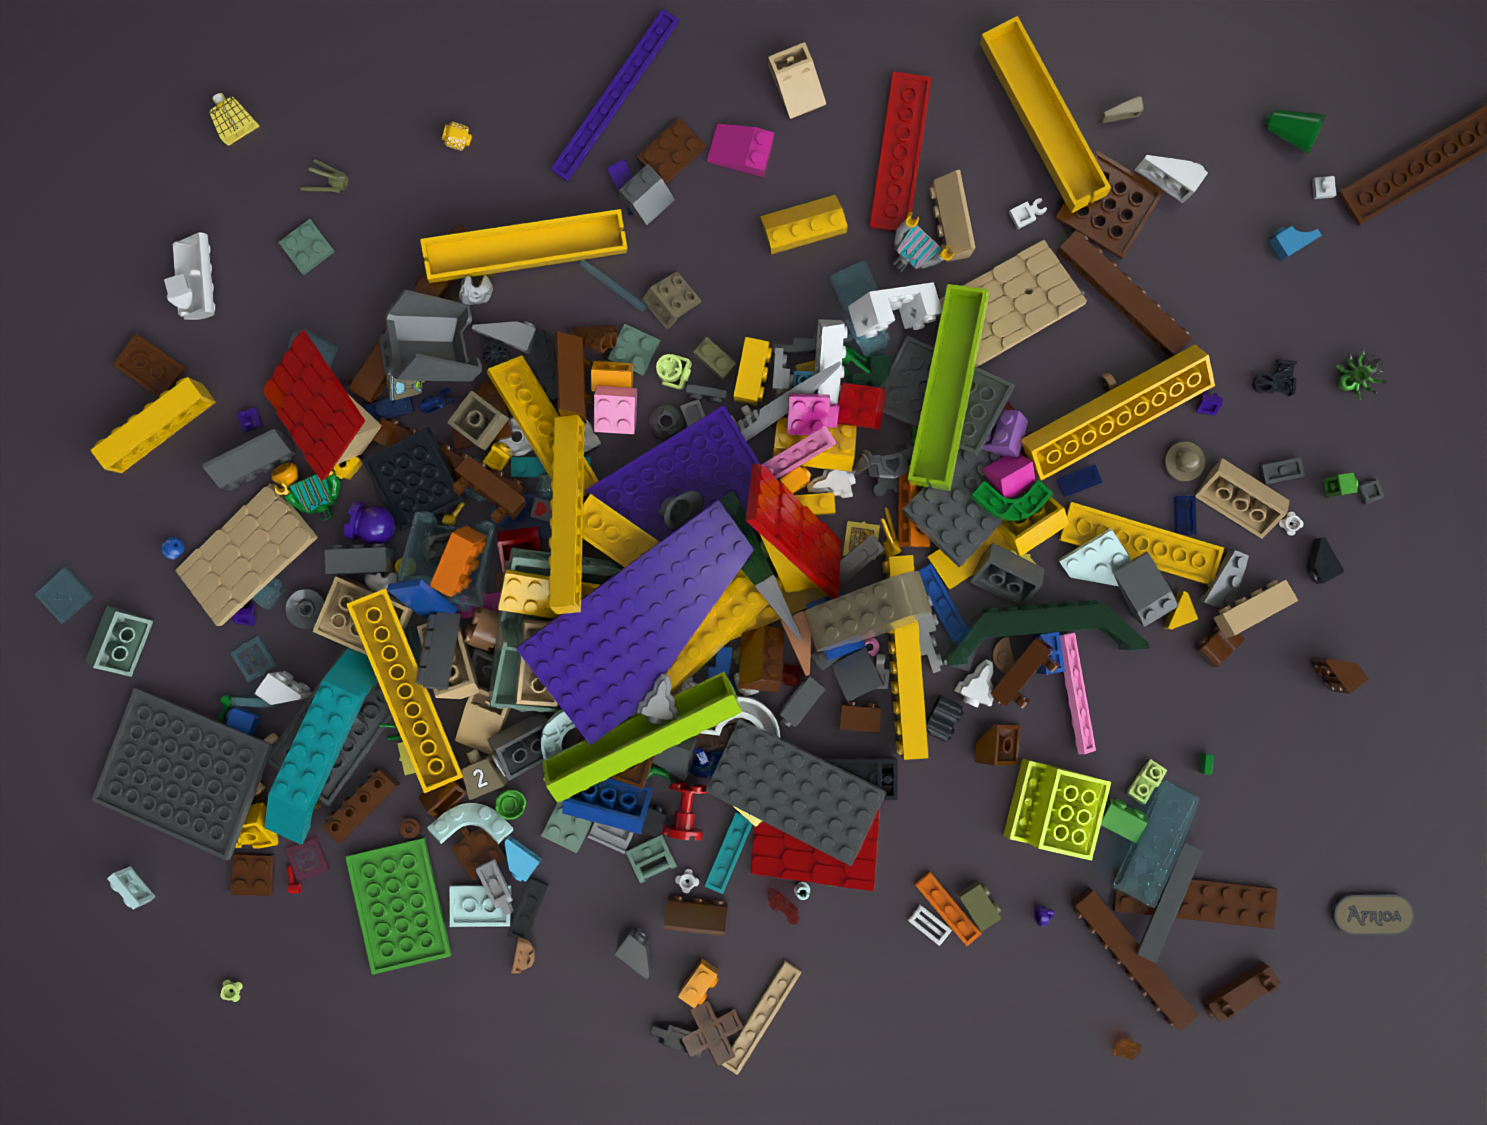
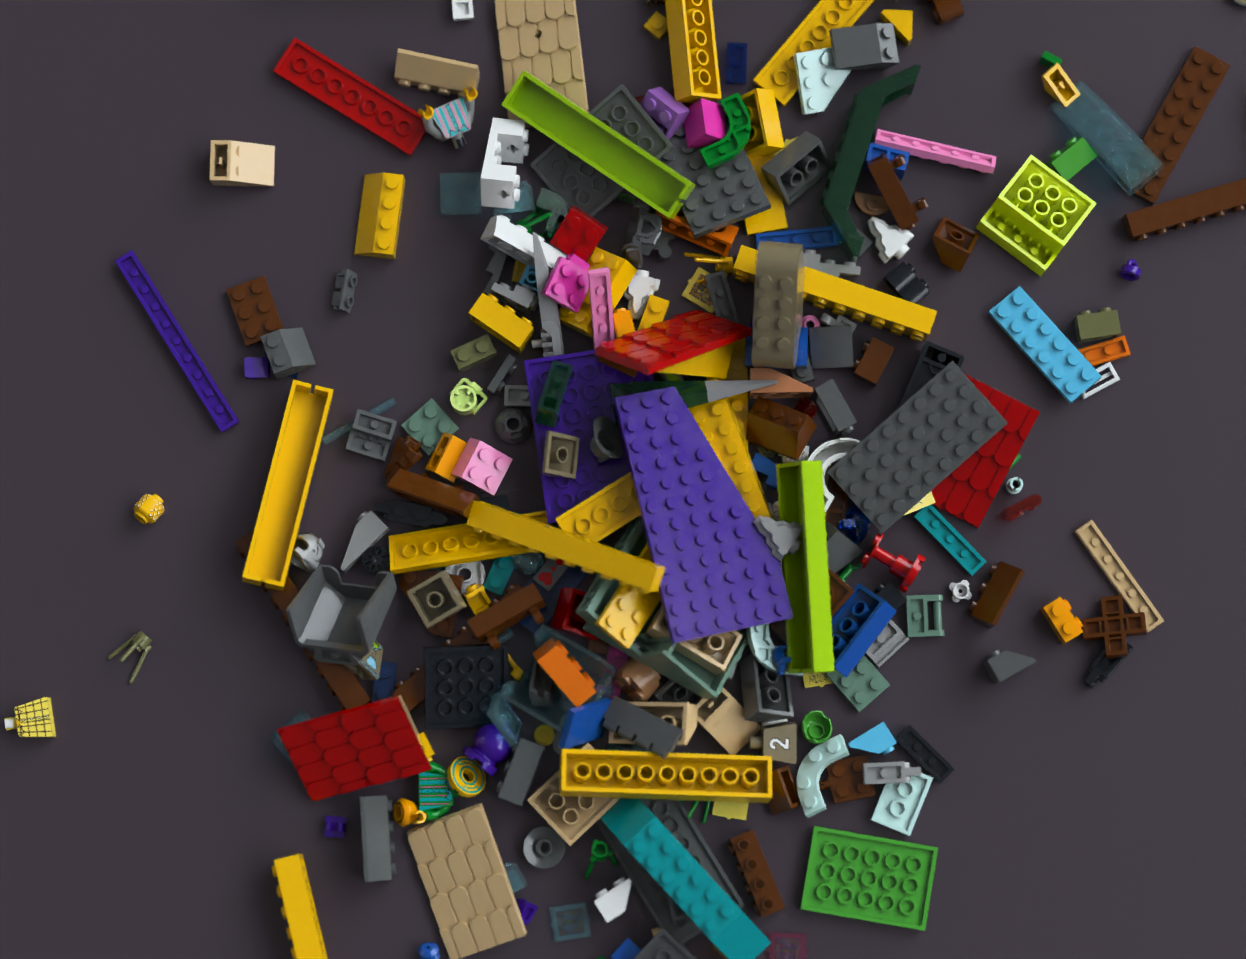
camera: 70 degrees left, 5 degrees down
(149, 365) = (240, 902): reddish brown plate -> none
(178, 291) = (182, 838): white tile -> none
(193, 260) = (173, 820): white container -> none
(250, 701) = (613, 935): clear light blue tile -> none
(306, 246) = (190, 700): sand green plate -> none
(315, 660) = (599, 853): none -> green plant
(326, 512) = (476, 776): none -> yellow tile
(377, 582) = (550, 762): white hair -> none
(396, 526) = (504, 719): none -> clear light blue plate
(409, 827) = (798, 834): reddish brown plate -> none
(433, 403) = (397, 642): clear blue plate -> none
(523, 956) = (967, 777): medium nougat plate -> none
(551, 748) = (780, 660): none -> blue piece
(603, 301) = (370, 435): none -> dark grey slope
(649, 474) = (560, 455): none -> dark tan slope
(670, 299) = (397, 371): dark tan bracket -> none
(703, 444) = (553, 394): none -> slope
(714, 224) = (346, 281): none -> dark grey hinge
(741, 148) = (282, 243): dark pink slope -> none
(941, 865) = (1045, 345): none -> medium azure plate
(1083, 394) = (657, 25): none -> yellow plate
(1146, 781) = (1045, 123): yellowish green slope -> none
(1169, 903) = (1165, 149): dark grey tile -> none
(1186, 781) = (1059, 85): none -> yellow slope

